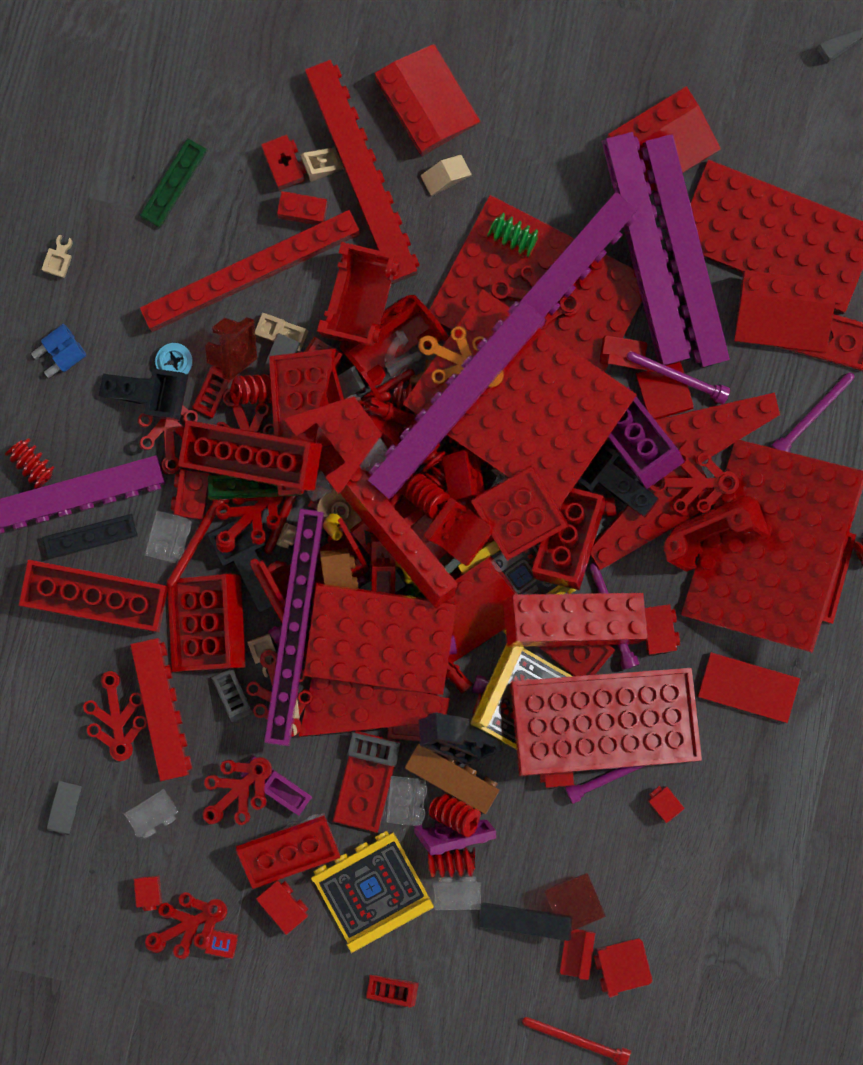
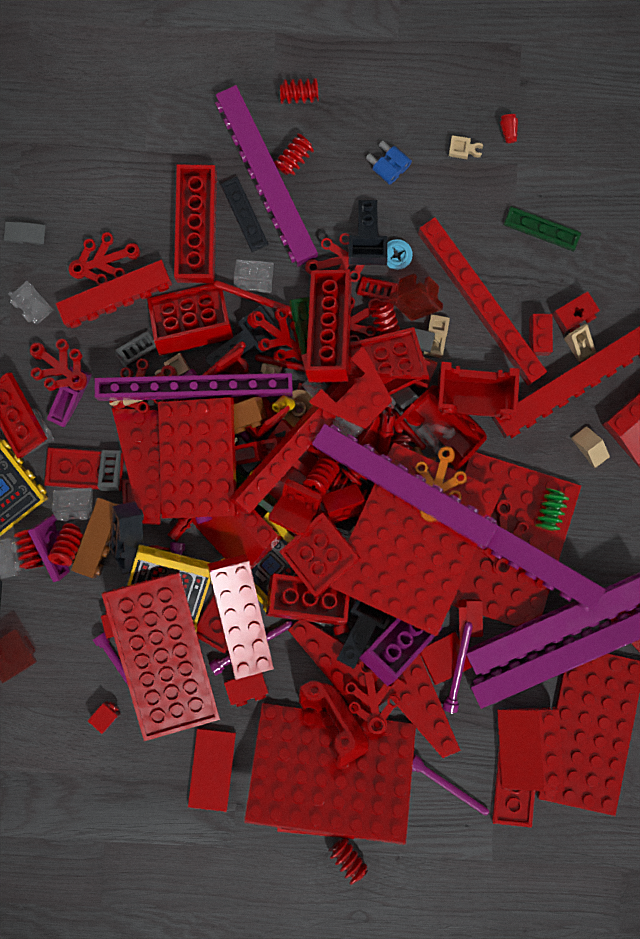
camera: 85 degrees right, 0 degrees up
(44, 199) = (509, 127): none -> red cone
(190, 494) = (291, 286): red bracket -> none

